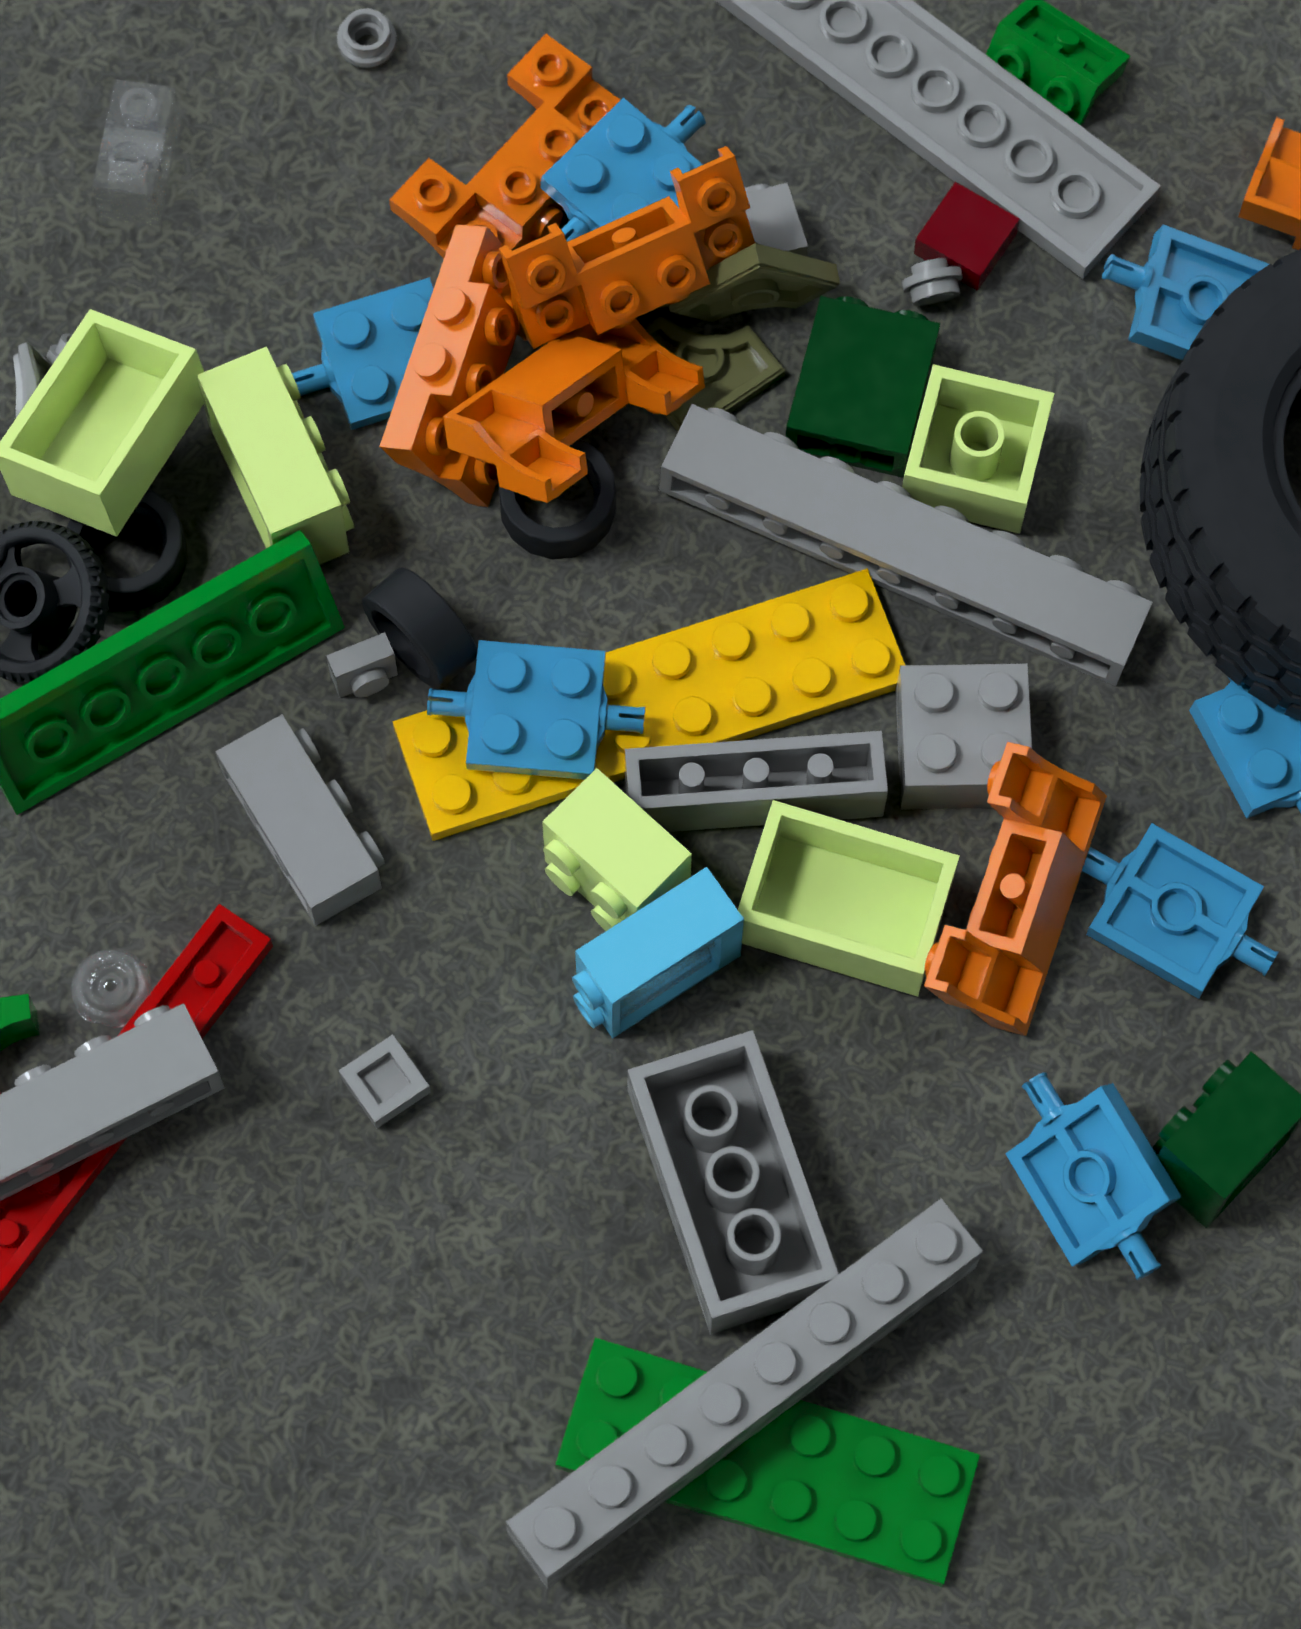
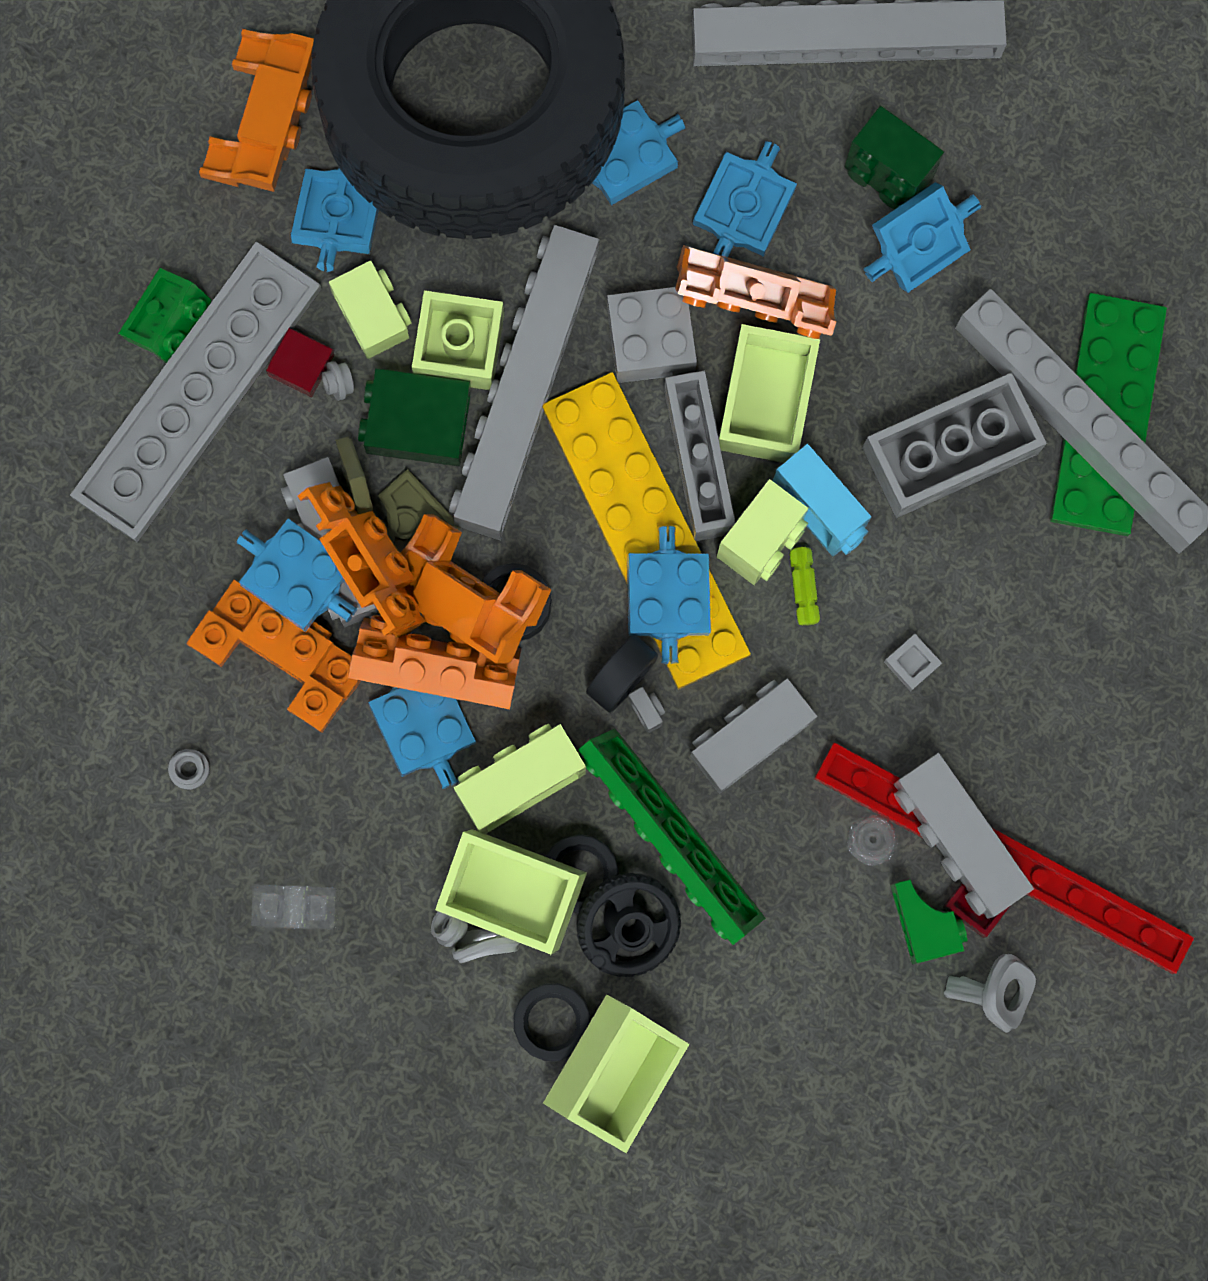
camera: 100 degrees left, 10 degrees up
(530, 932) = (804, 586): none -> lime axle
(1042, 333) = (369, 308): none -> yellowish green brick

